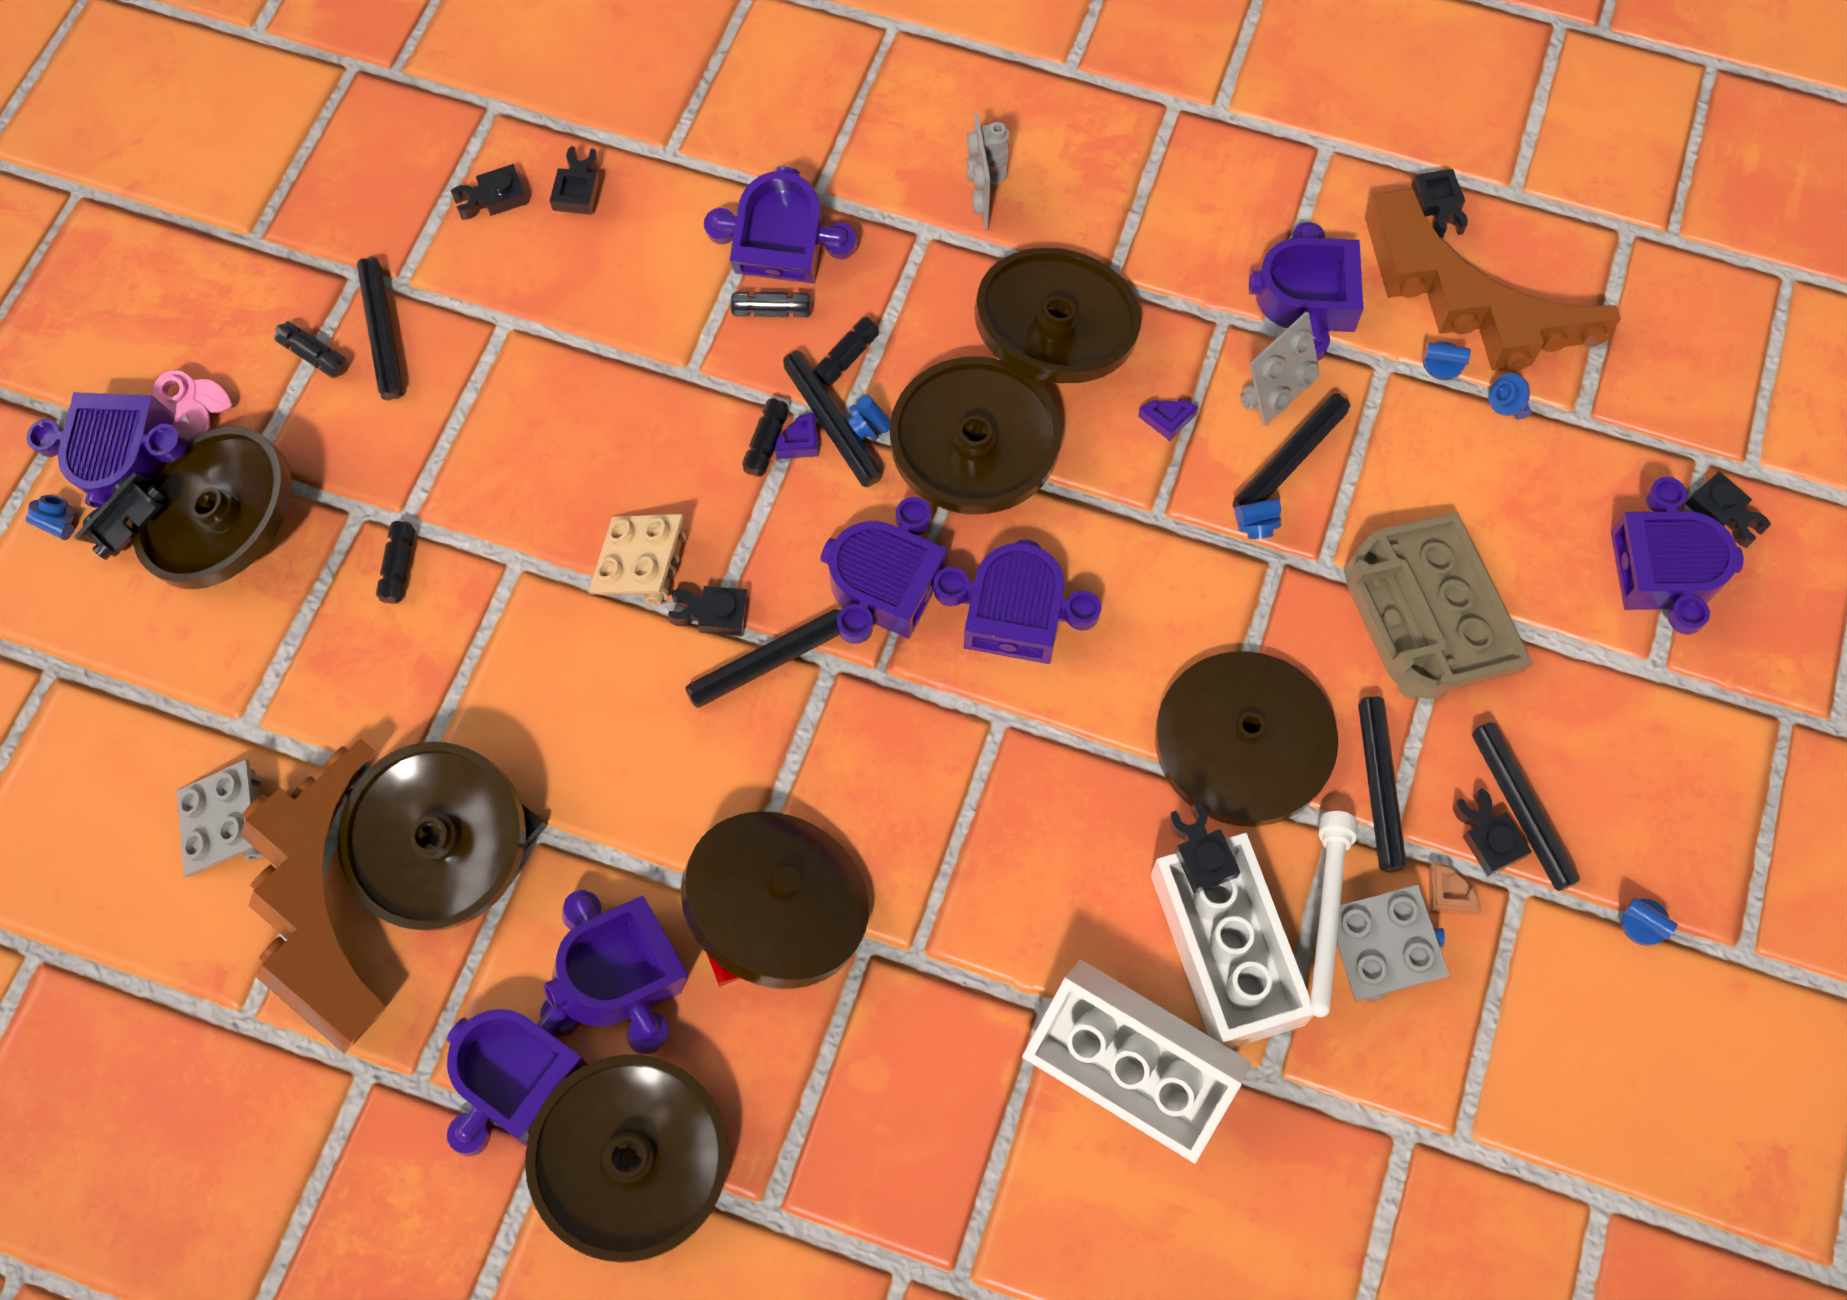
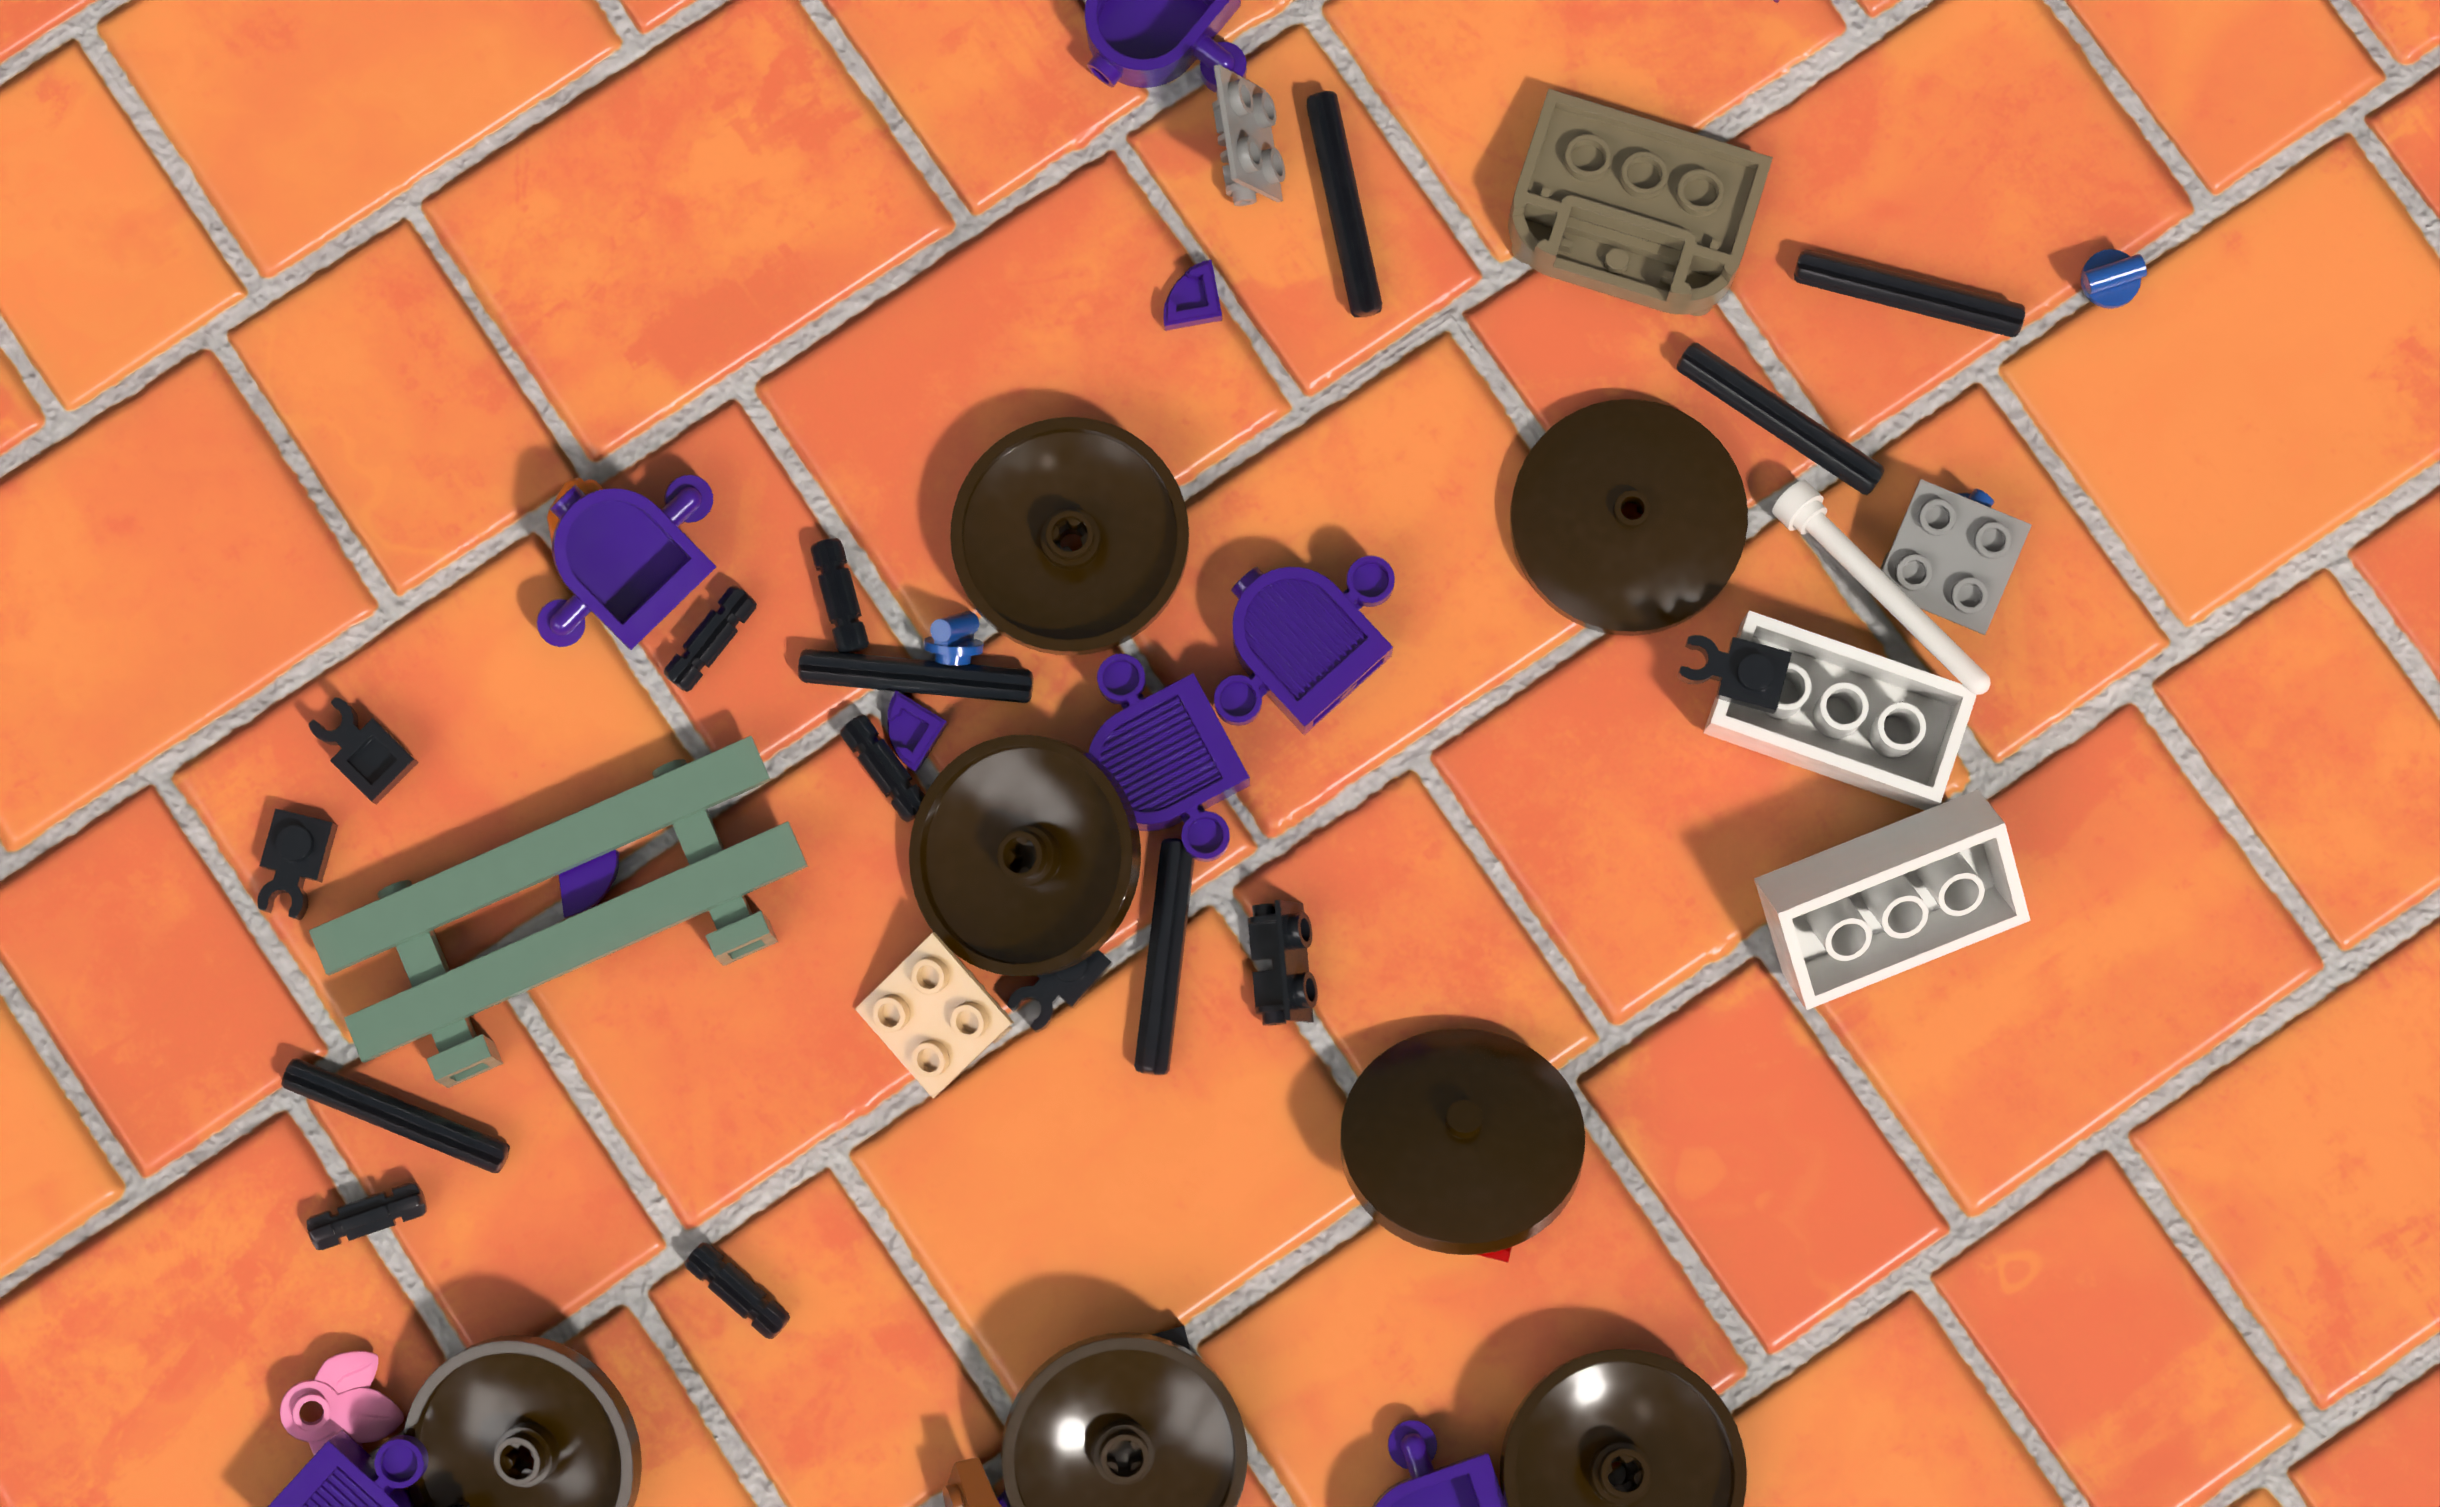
camera: 50 degrees left, 15 degrees up
(471, 303) = (446, 998): none -> sand green fence
(584, 333) = (588, 883): none -> dark purple tile
(615, 969) = (1411, 1356): dark purple piece -> none
(767, 534) = (1025, 855): none -> dark brown dish
(827, 717) = (1289, 990): none -> black hinge
(986, 162) = (712, 256): light grey hinge -> none
(1057, 315) = (978, 284): dark brown dish -> none
(1259, 518) = (1399, 304): blue plate -> none
(1451, 892) = (1939, 443): nougat tile -> none
(1492, 840) = (1920, 355): black plate -> none

